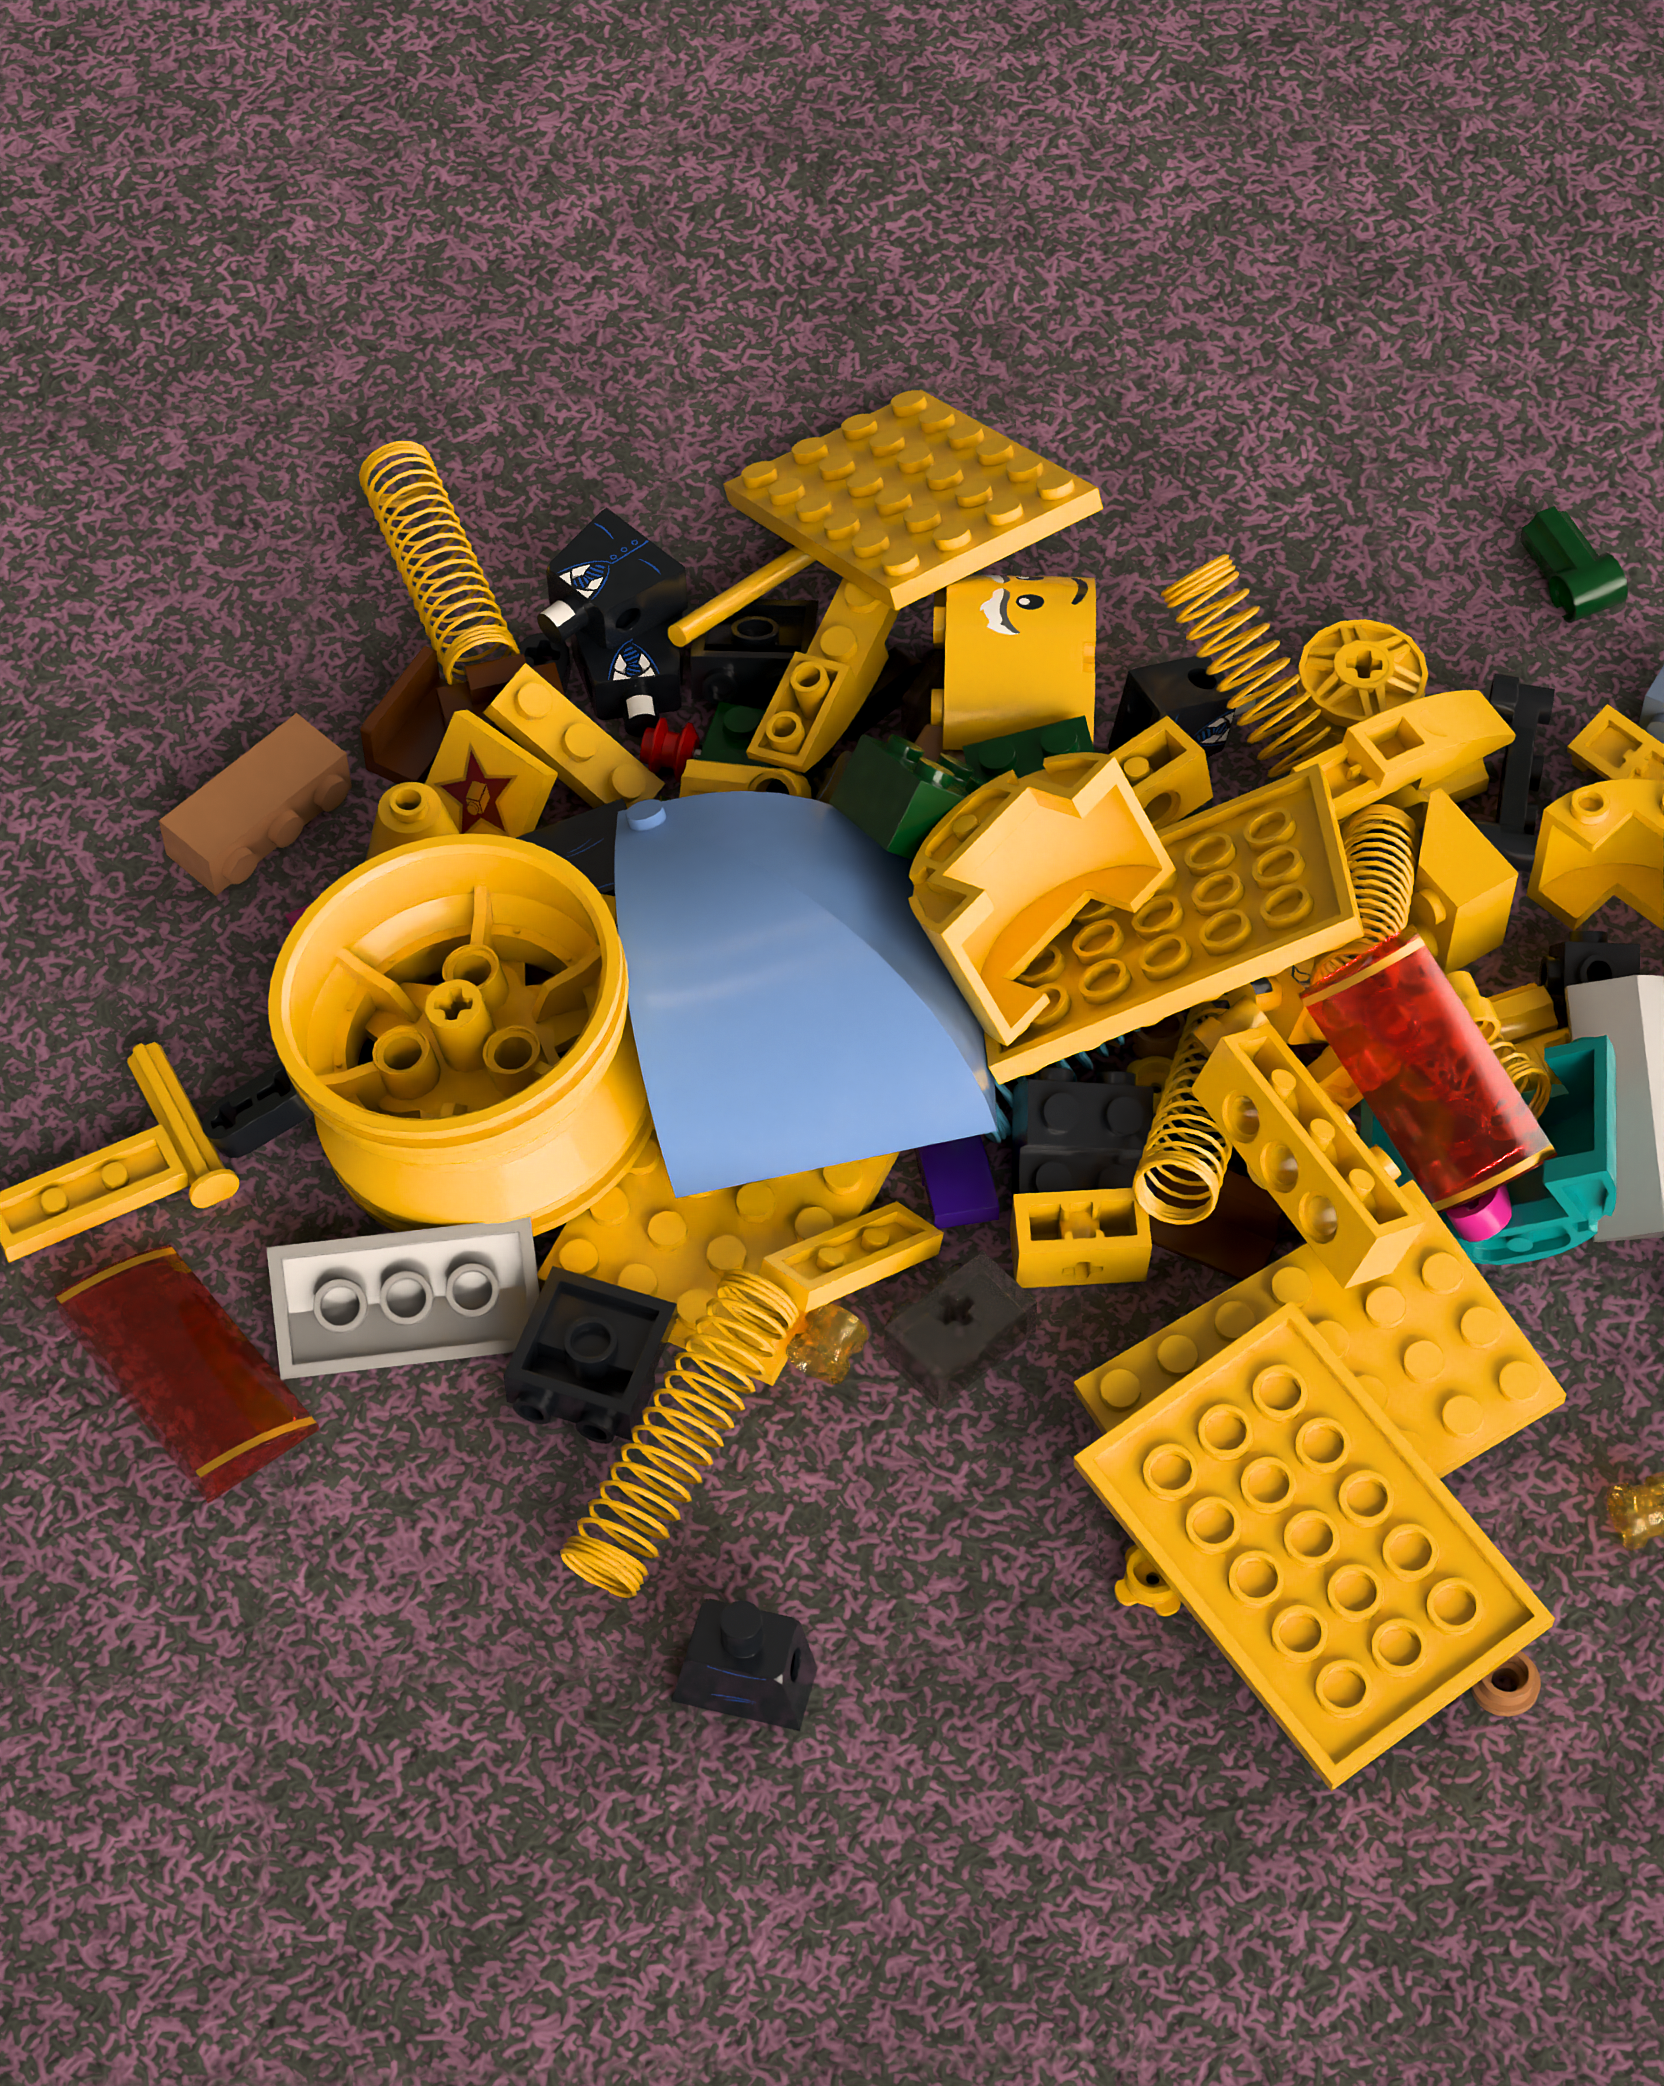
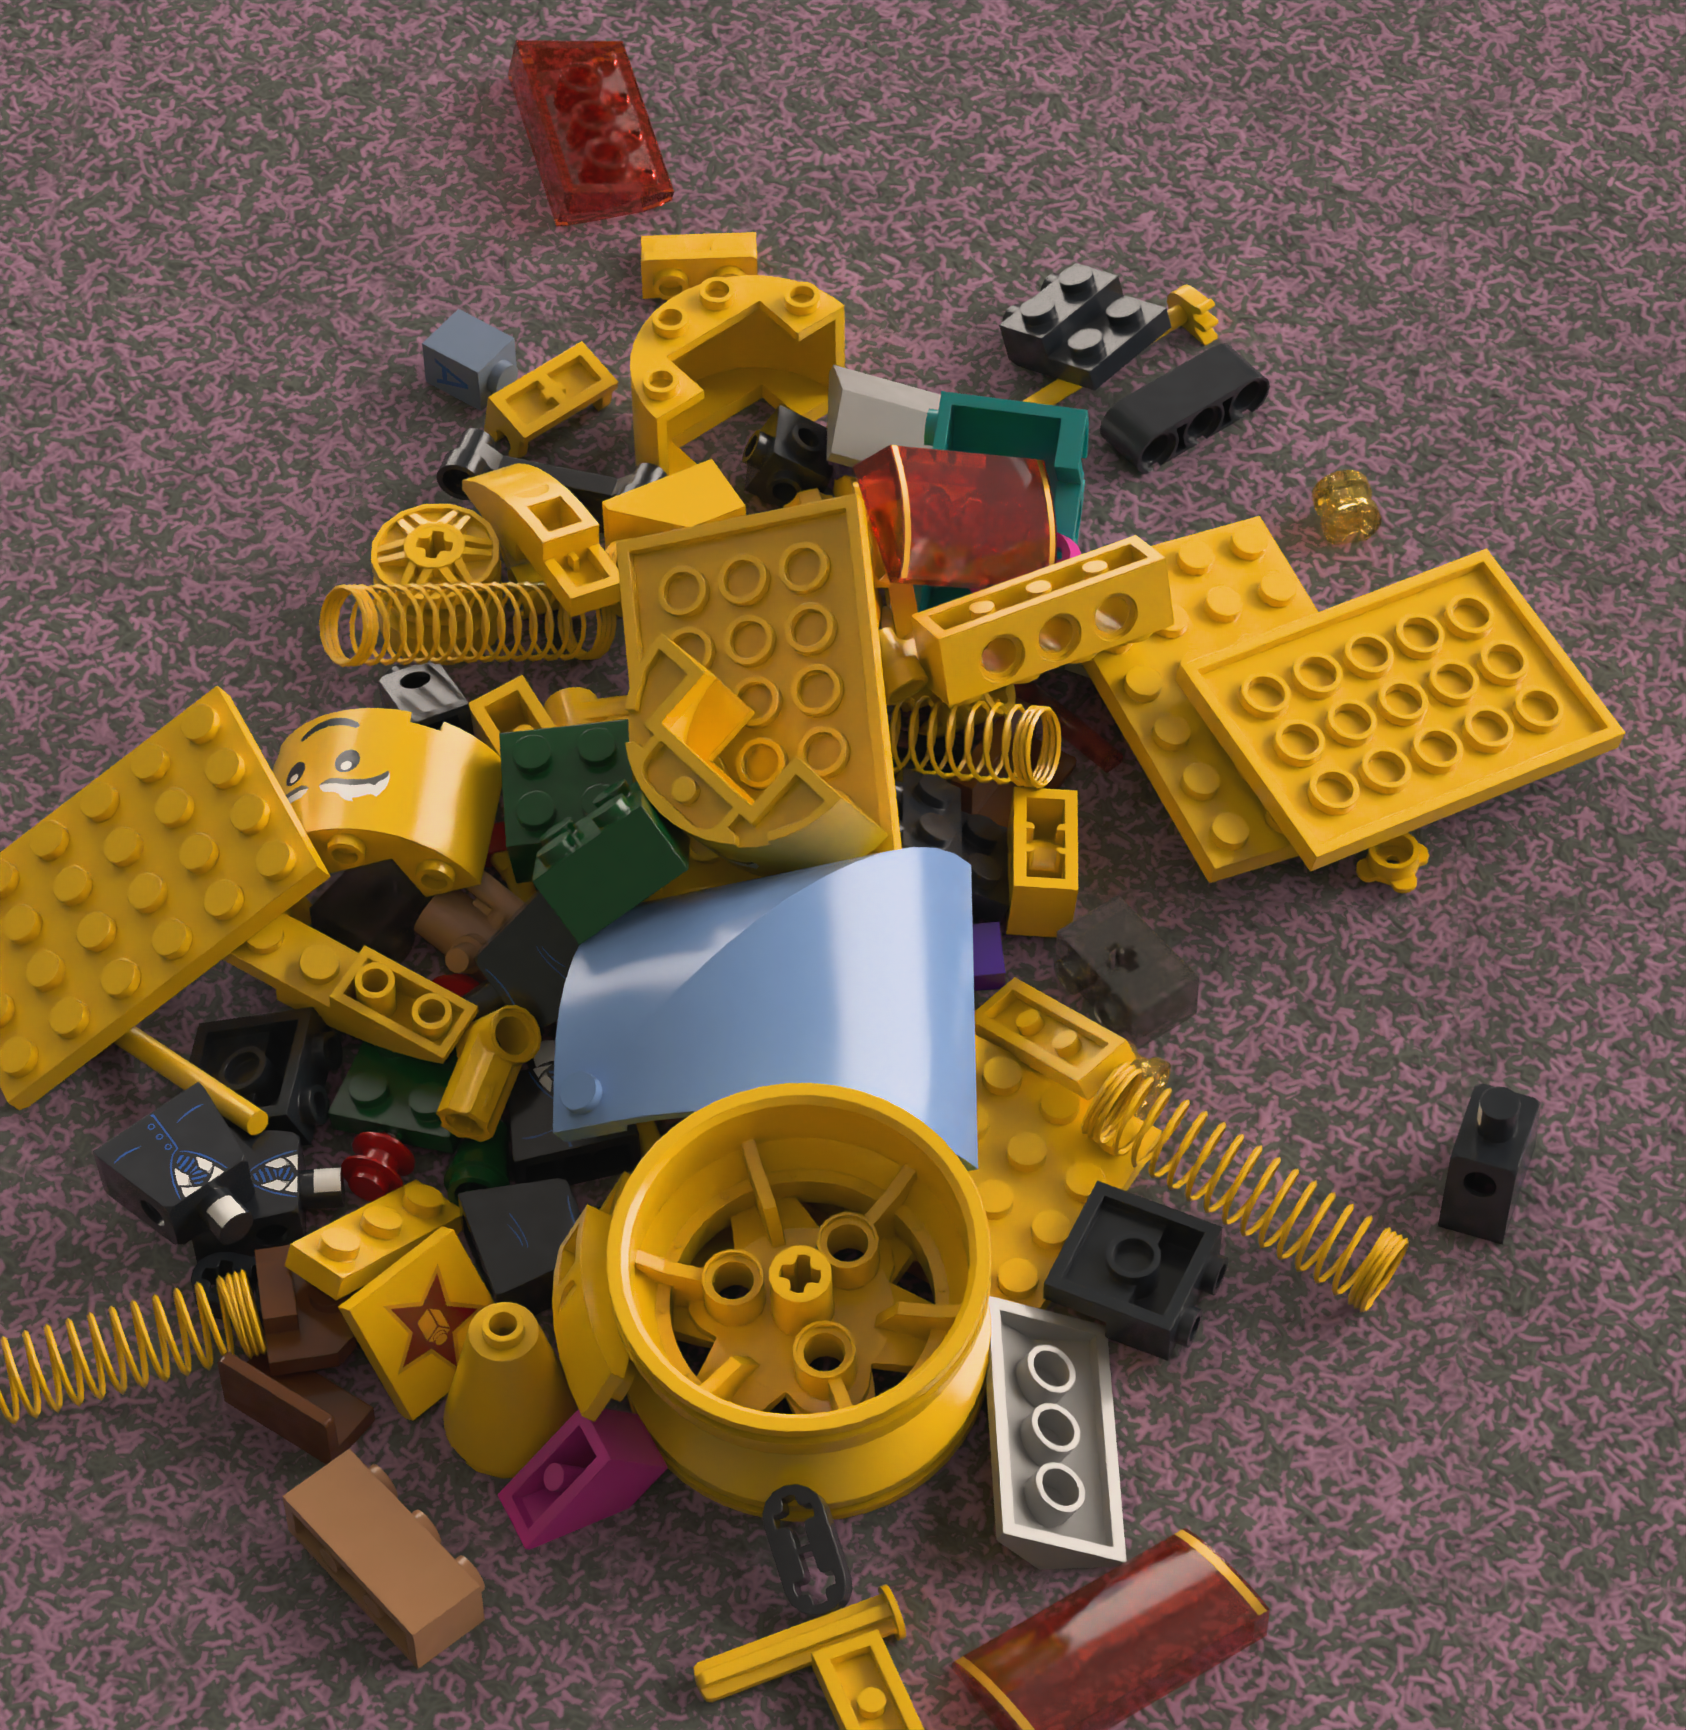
camera: 85 degrees left, 5 degrees down
(1575, 572) = (304, 415): dark green piece -> none

